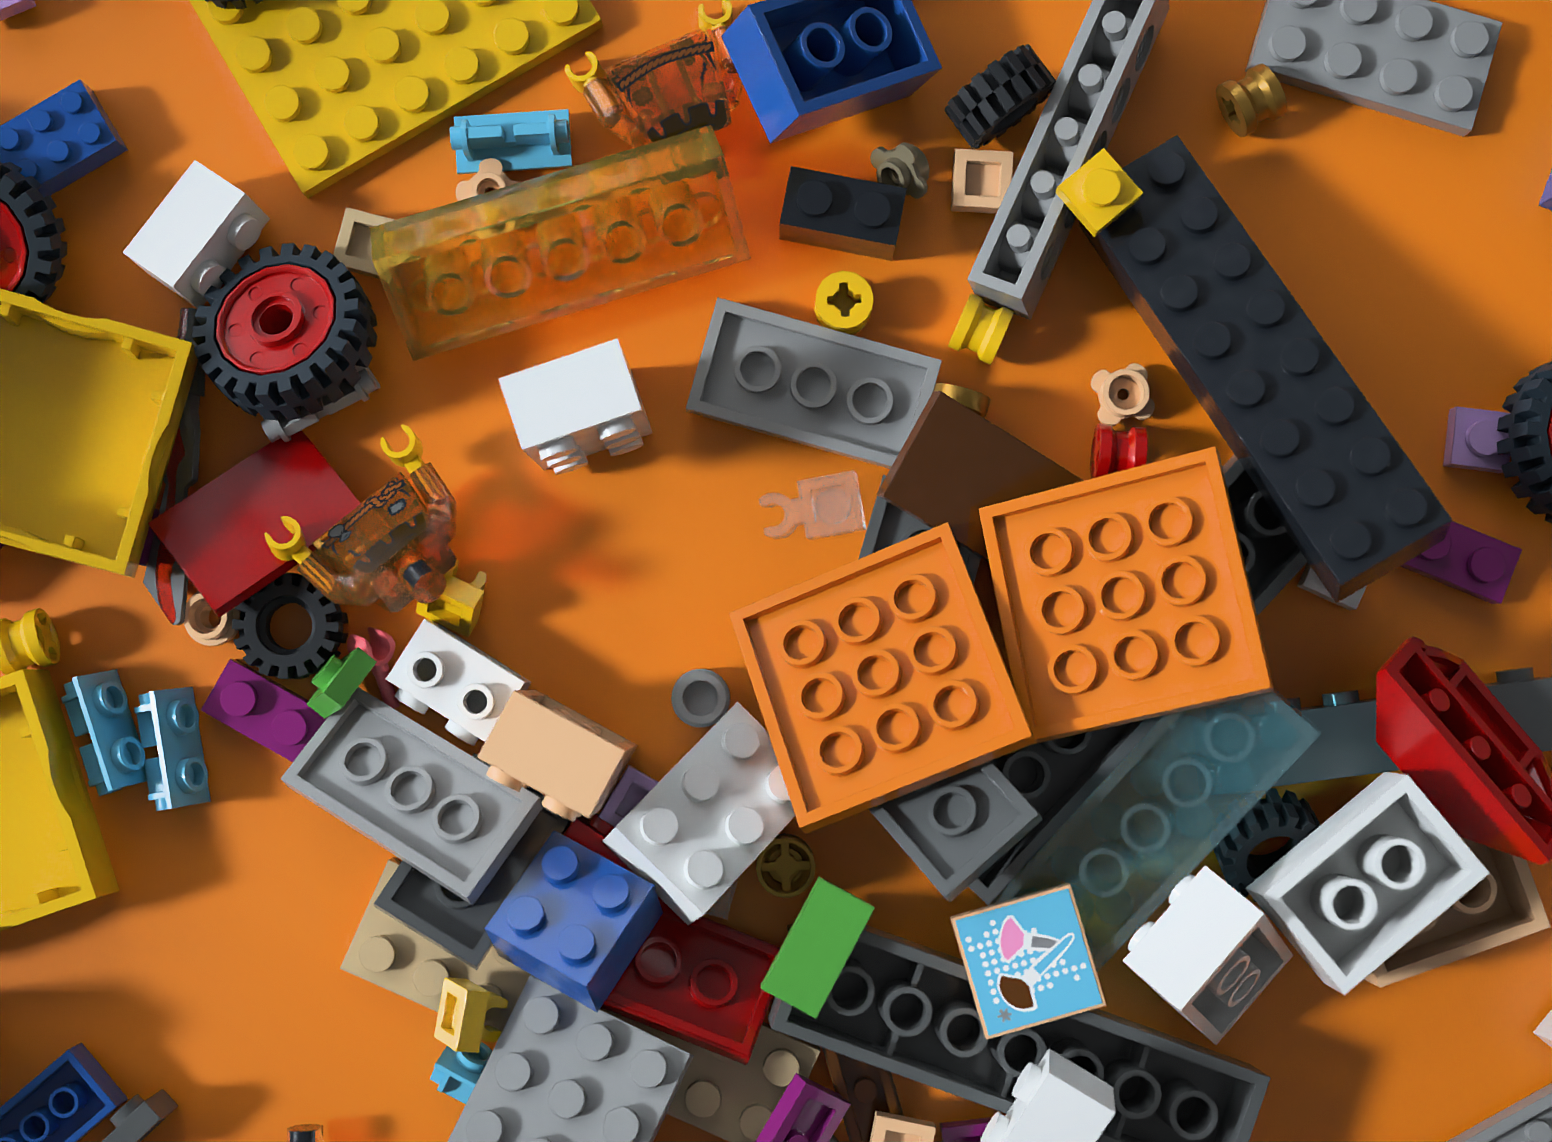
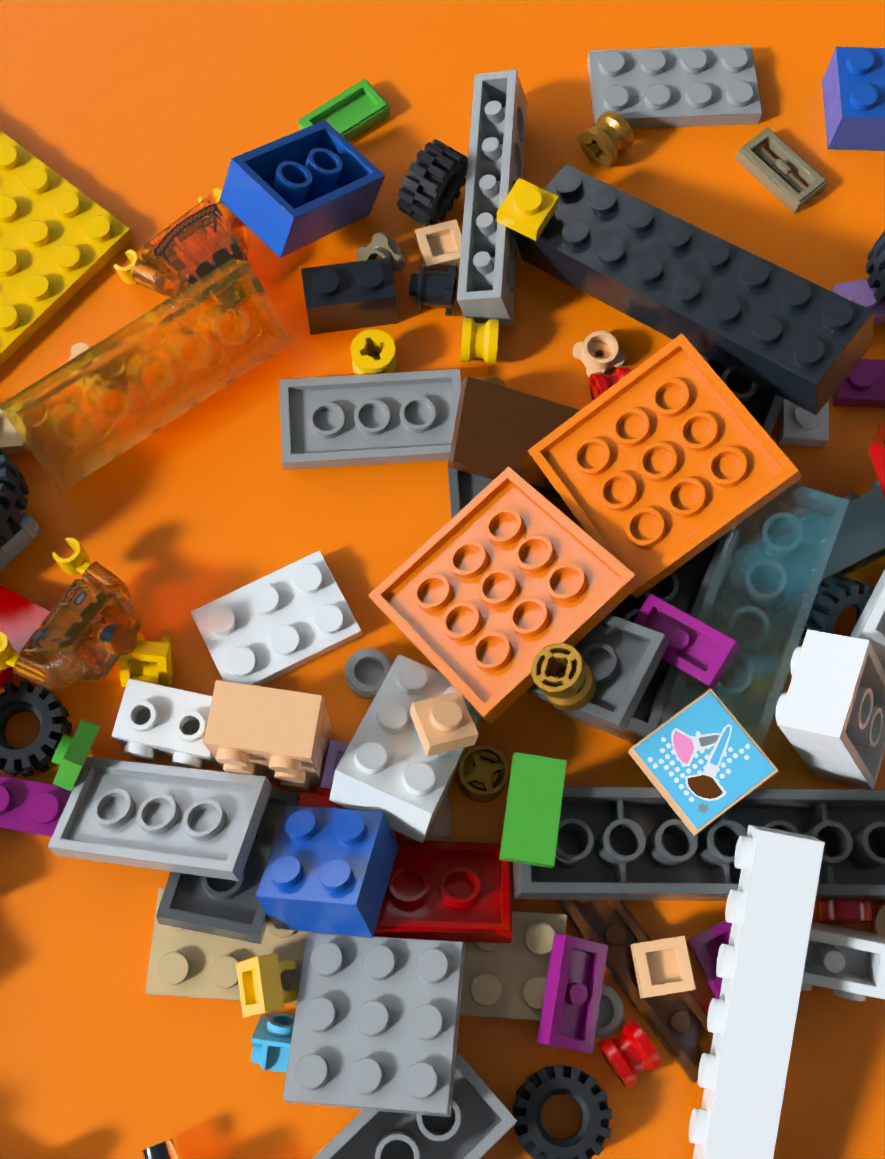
camera: 20 degrees left, 15 degrees down
(381, 650) = (102, 717): coral hand -> none
(515, 139) = (86, 326): medium azure hinge -> none
(577, 407) = (199, 473): white brick -> none
(614, 600) = (277, 622): none -> white plate
(754, 814) = (443, 723): none -> light nougat plate
(825, 507) = (413, 498): clear plate -> none
(911, 832) = (571, 687): none -> pearl gold wheel
(950, 237) = (434, 288): none -> black brick
(1070, 828) = (692, 645): none -> magenta plate
(1442, 226) = (775, 173): none -> dark tan tile

